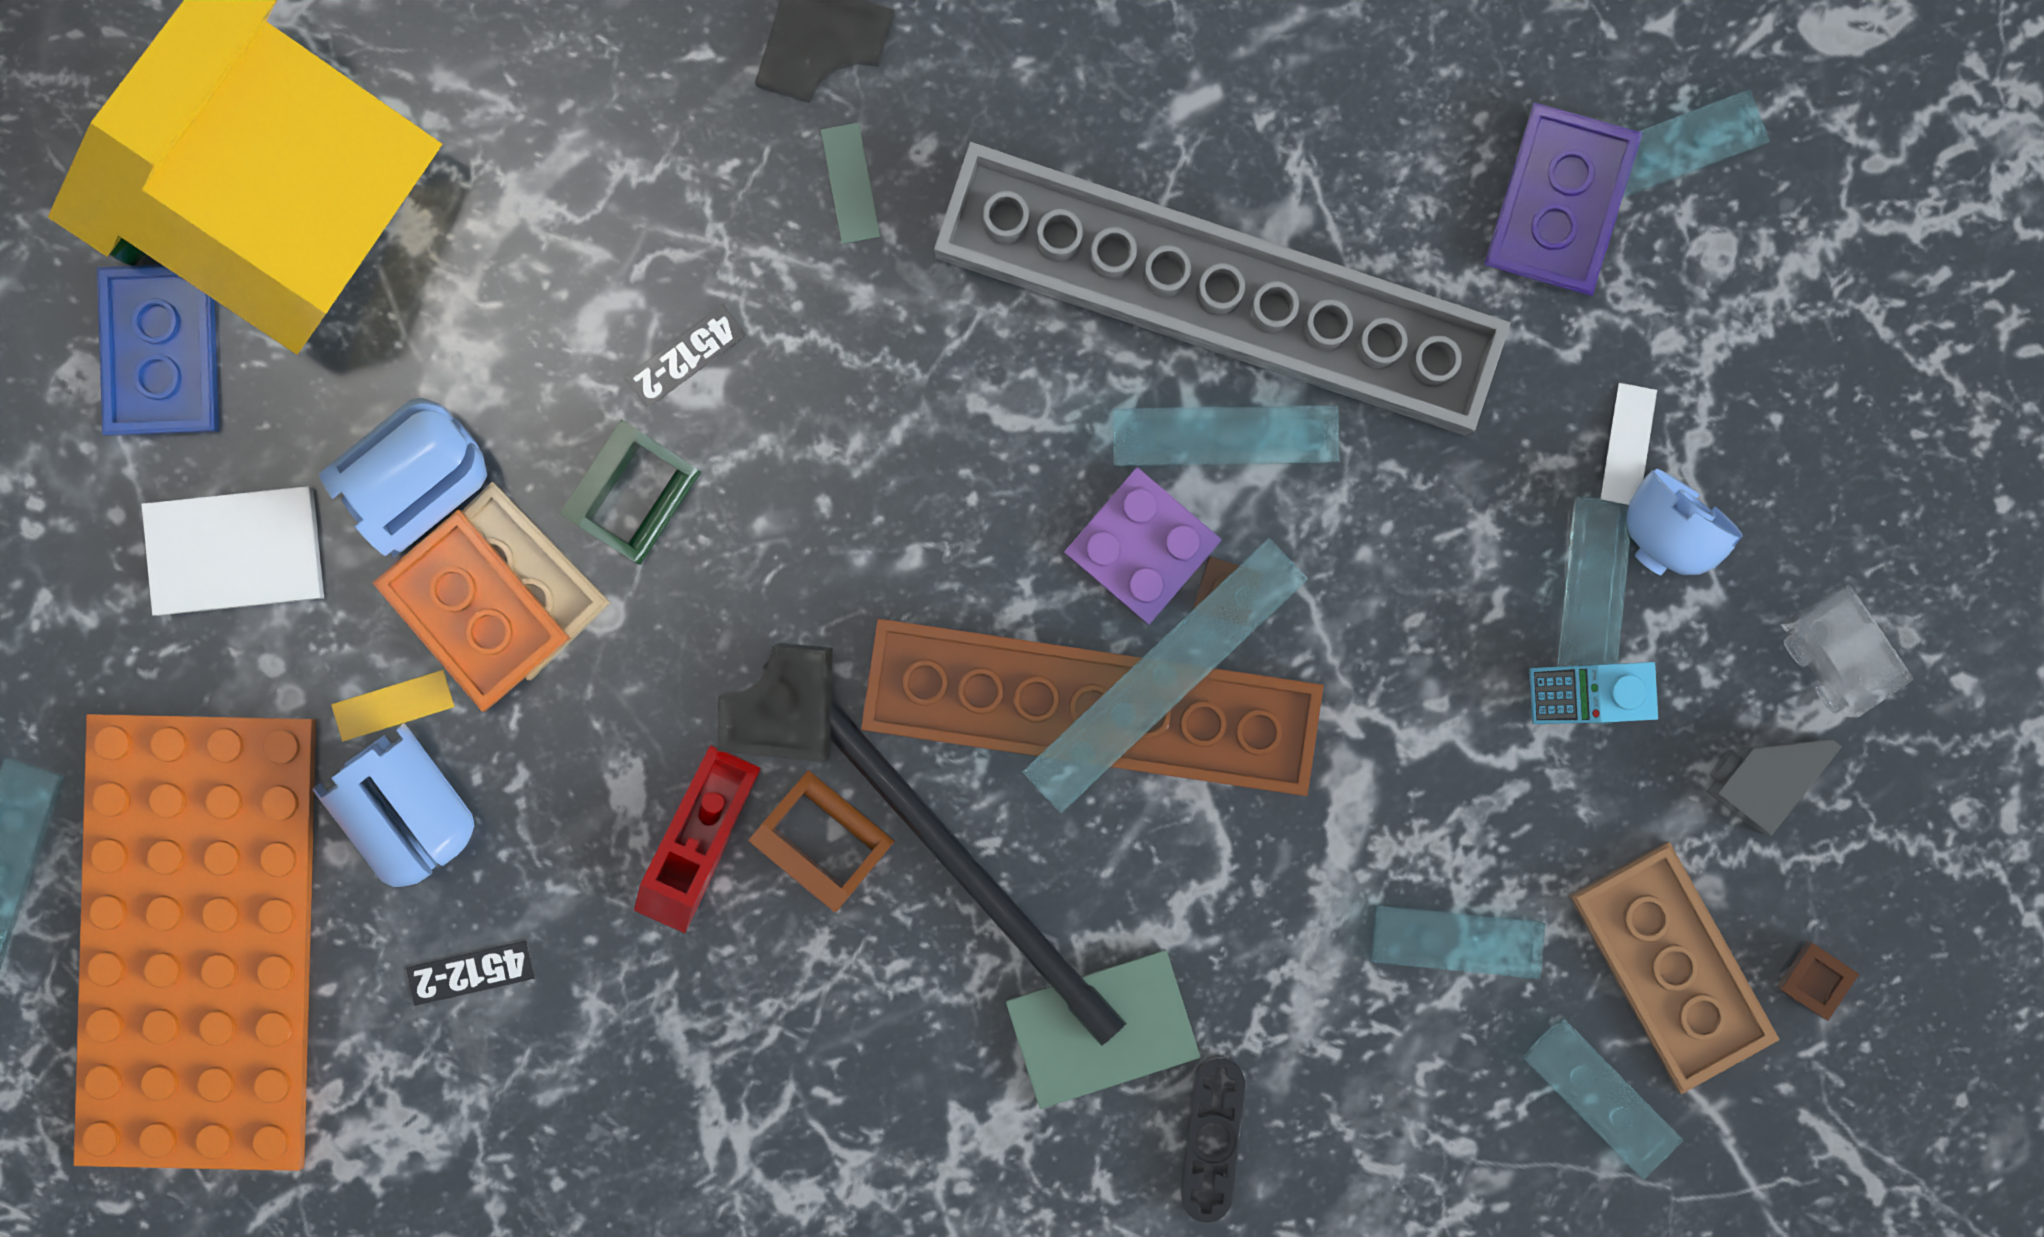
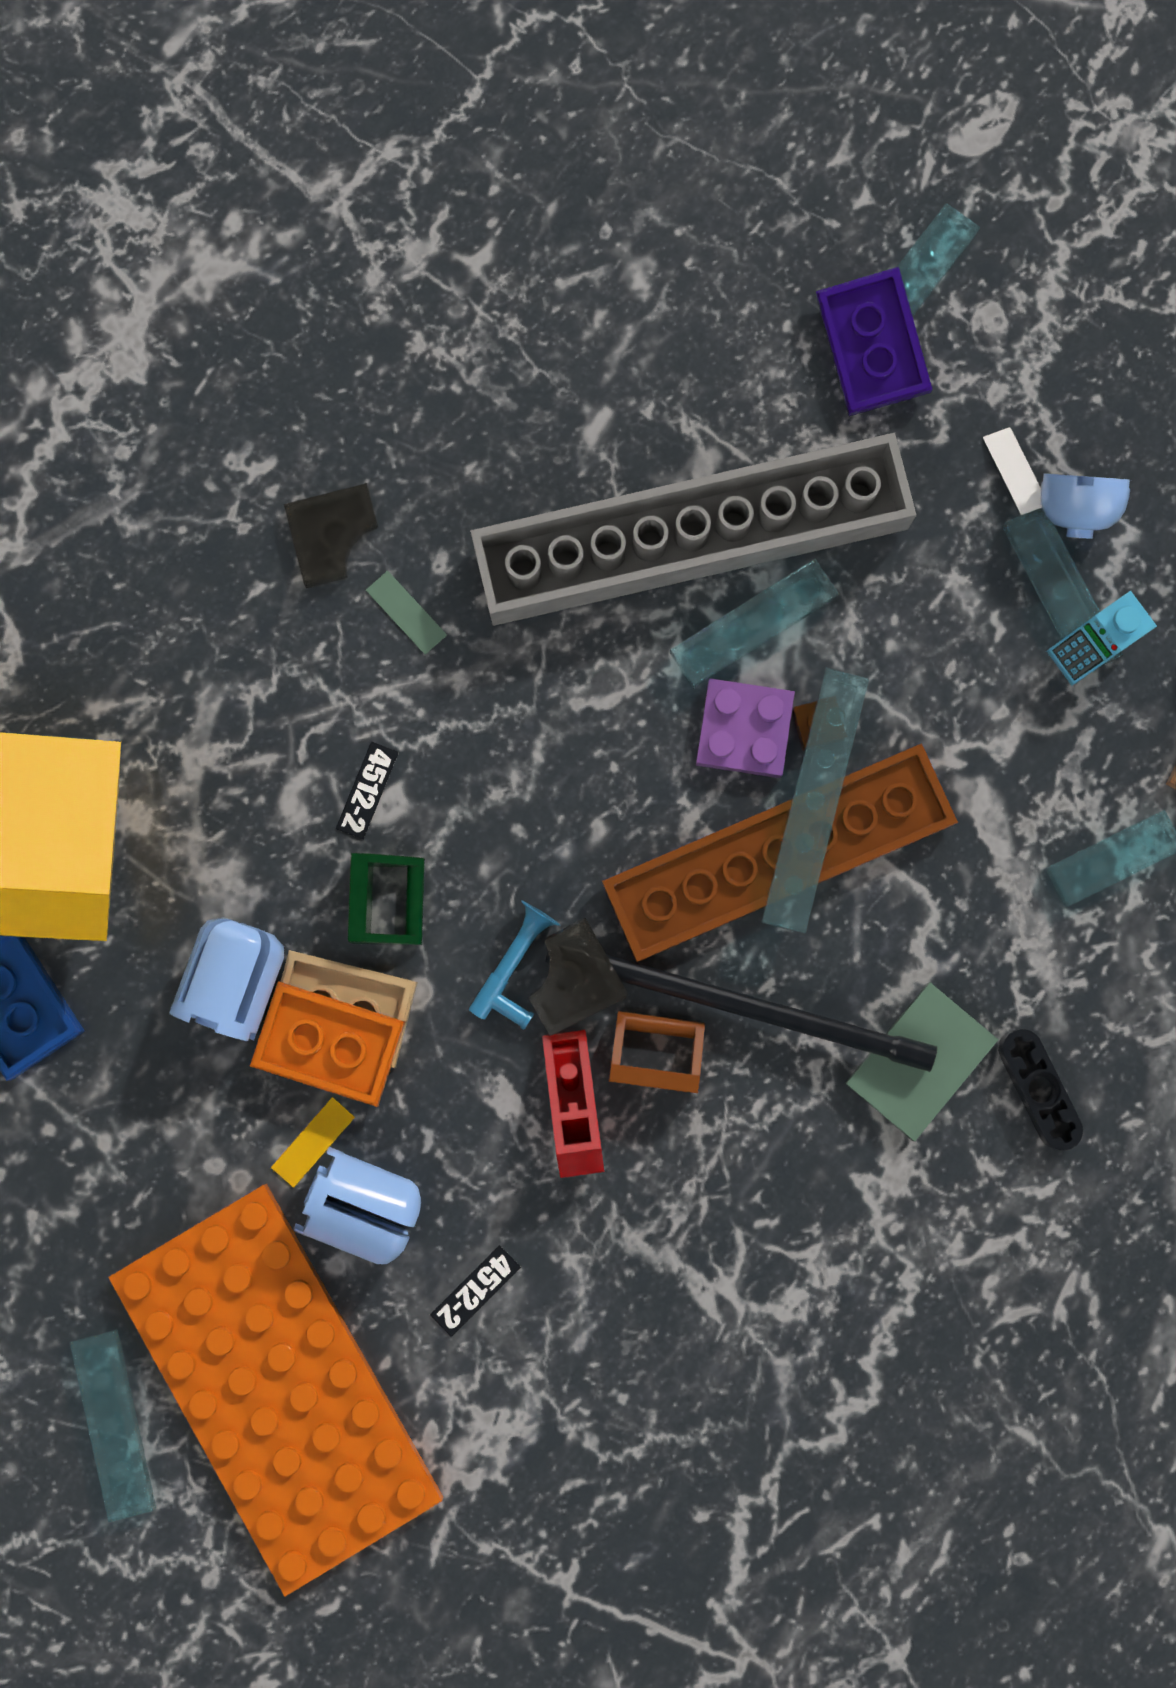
camera: 30 degrees left, 5 degrees down
(232, 551) = (141, 1105): white tile -> none
(679, 667) = (490, 994): none -> dark azure piece

